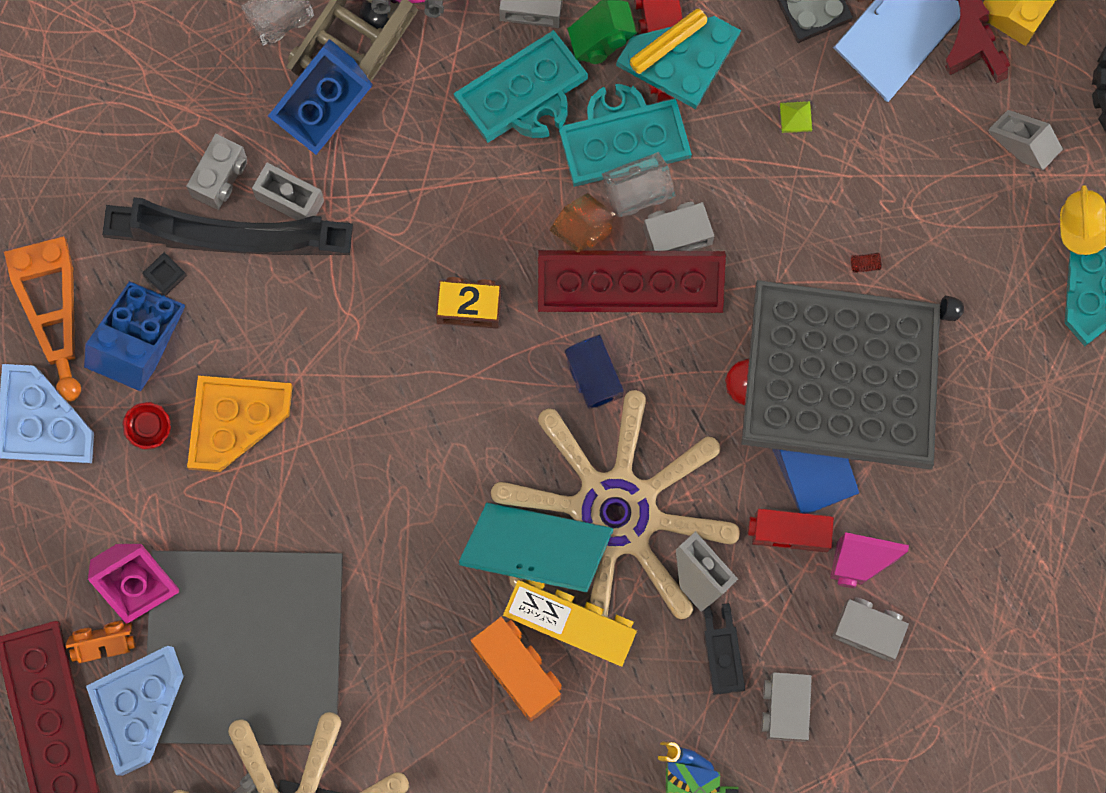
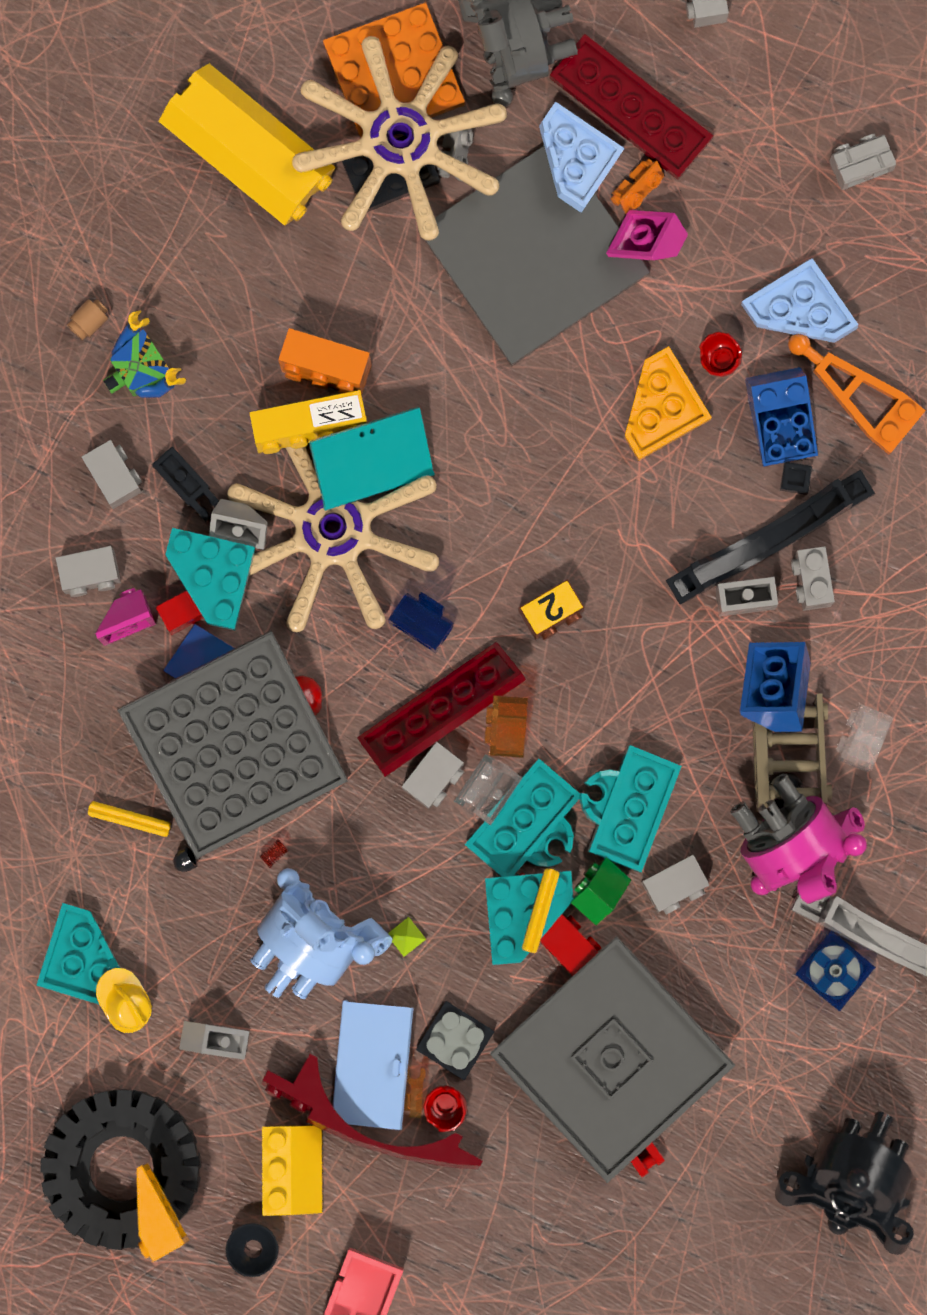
camera: 150 degrees right, 5 degrees up
(758, 541) = (212, 573): none -> teal plate
(886, 152) = (311, 940): none -> light blue piece
(977, 380) = (129, 819): none -> yellow axle

